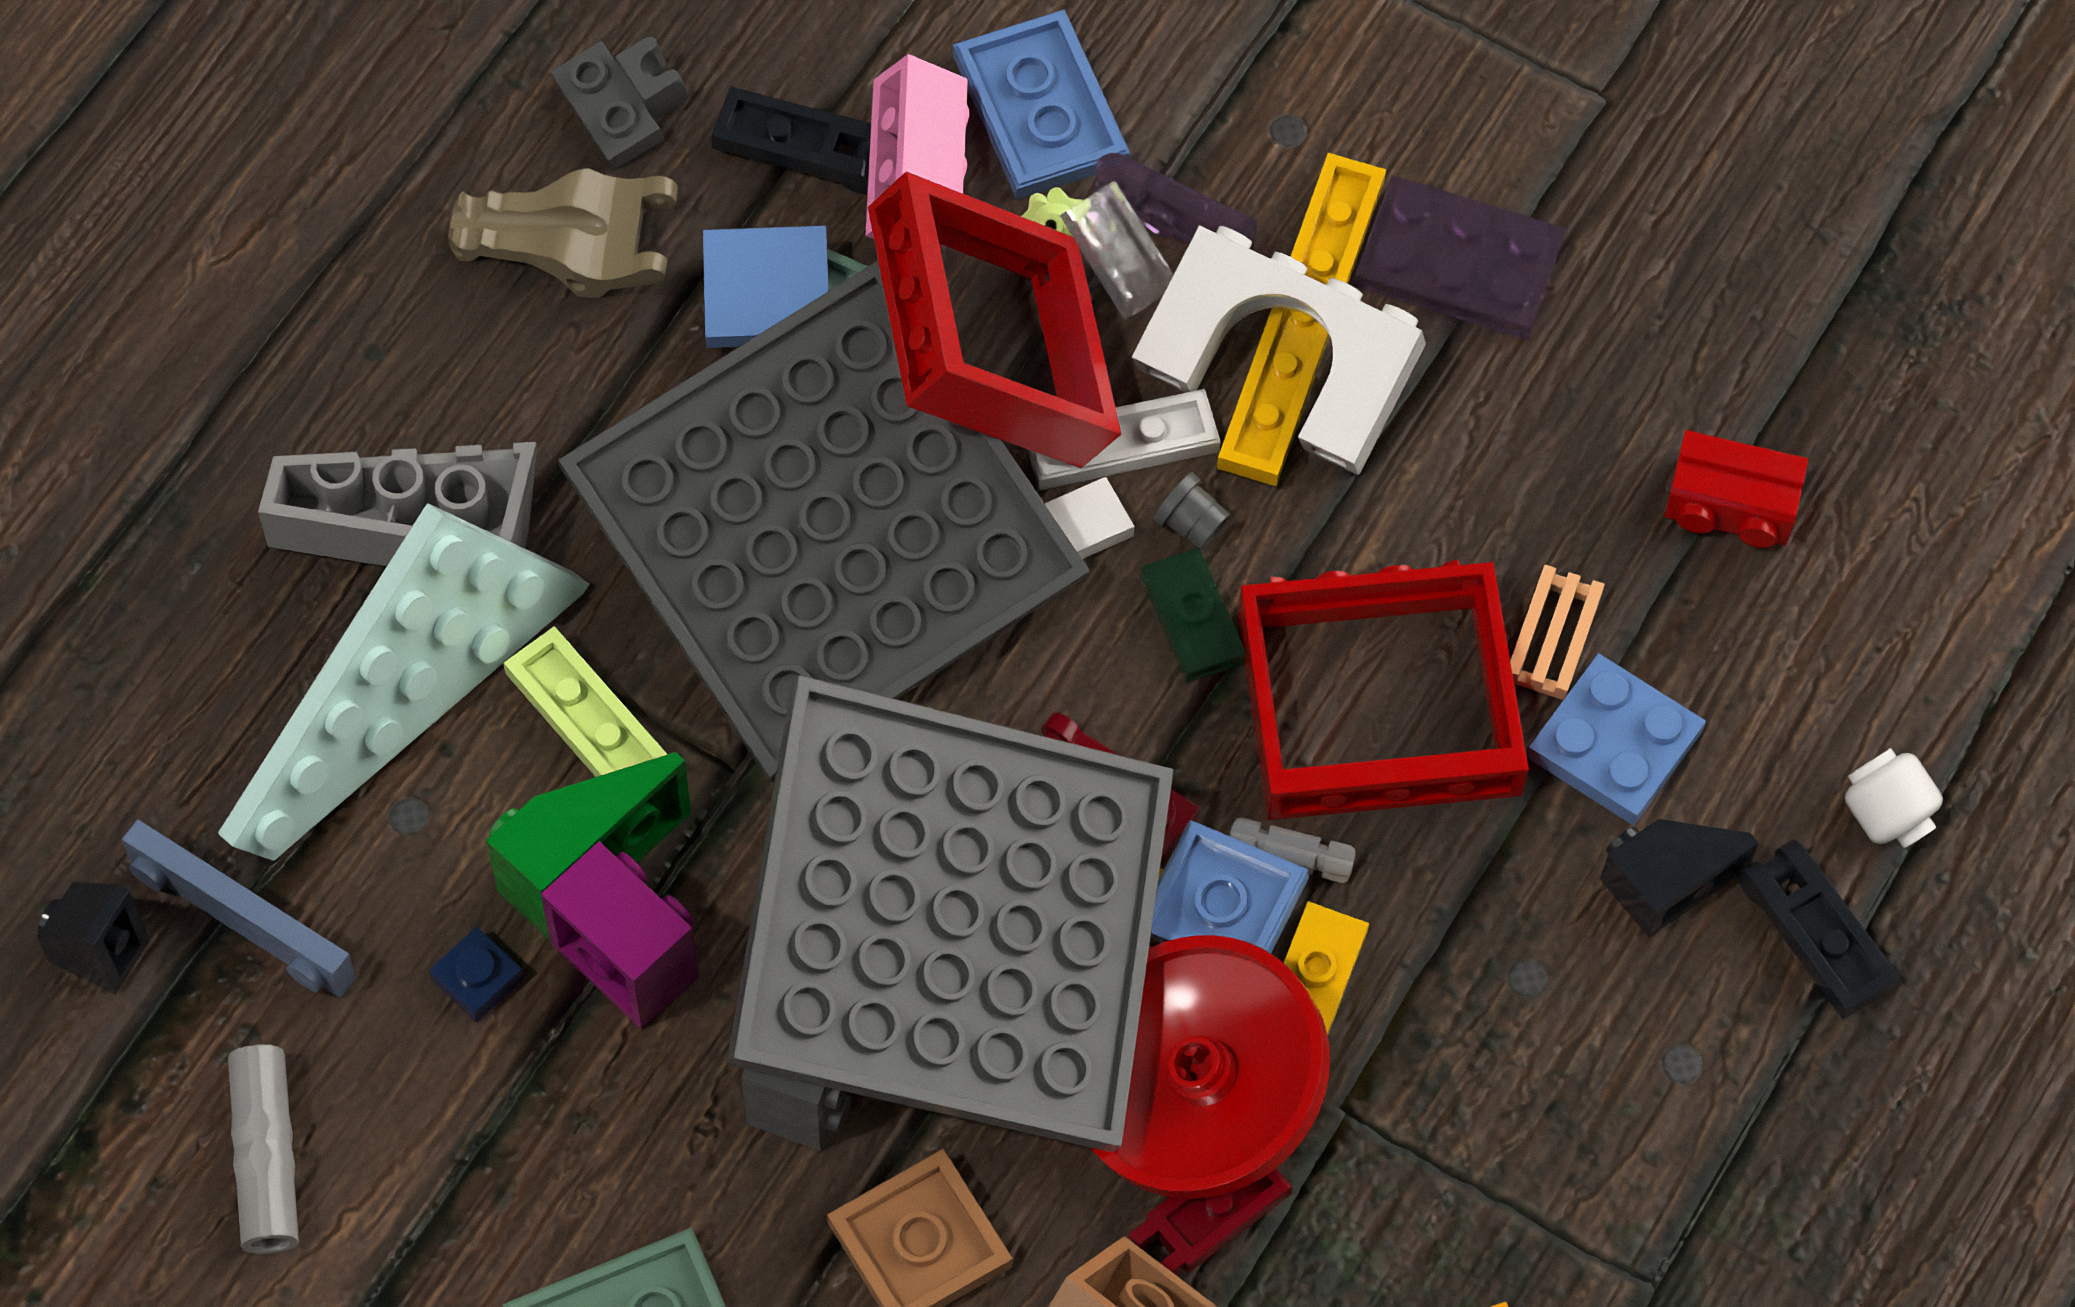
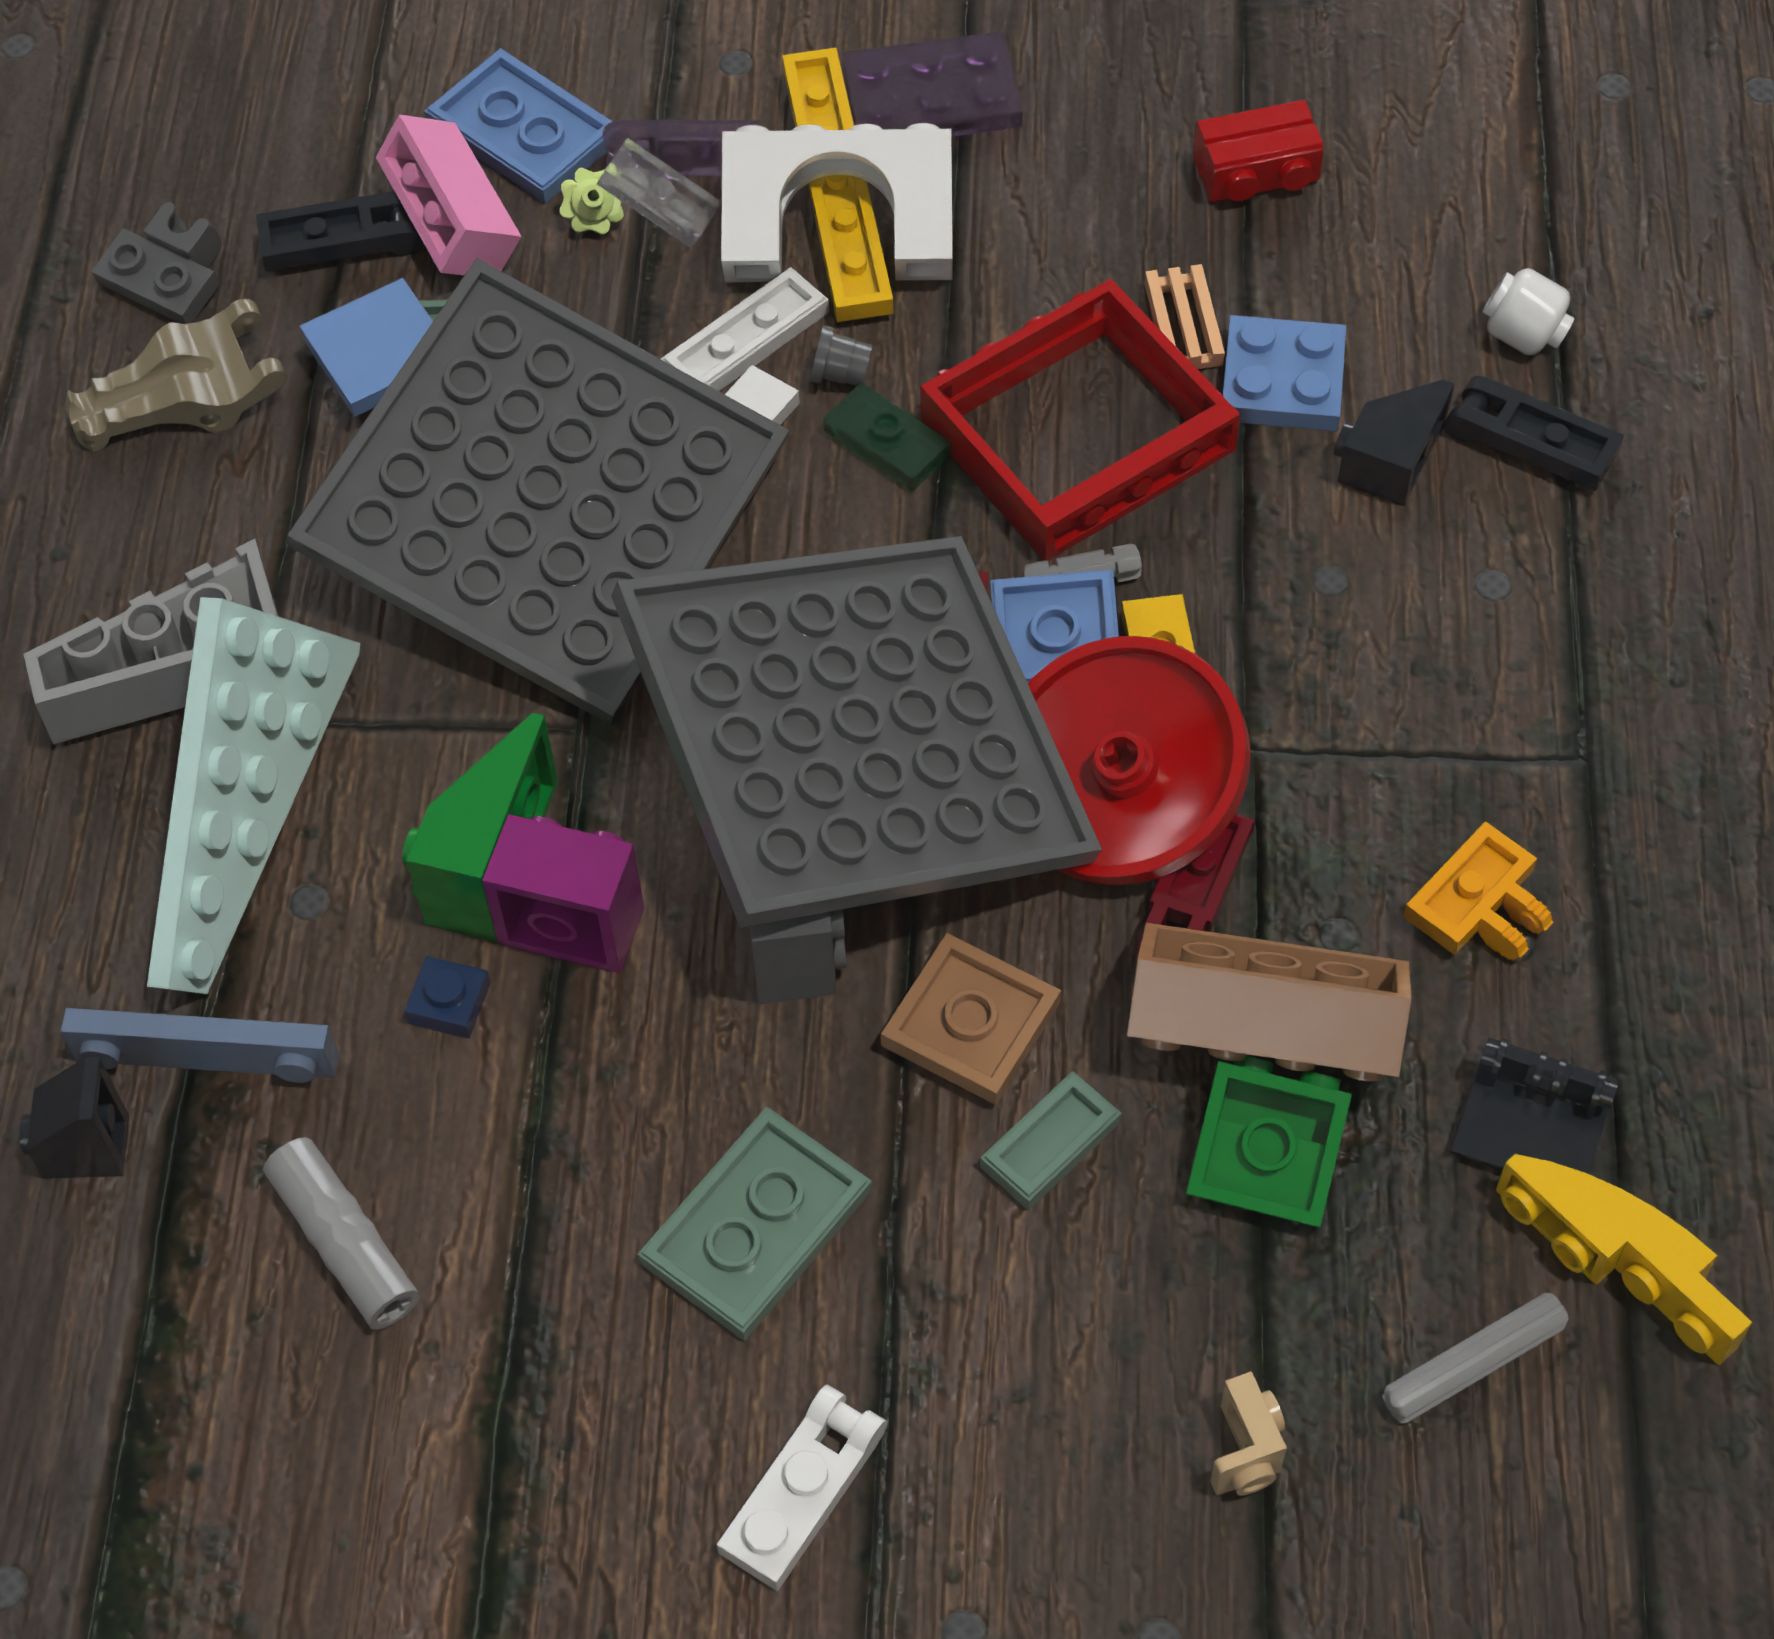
camera: 25 degrees left, 5 degrees down
(580, 705) = (407, 736): yellowish green plate -> none
(907, 231) = (521, 237): red window -> none

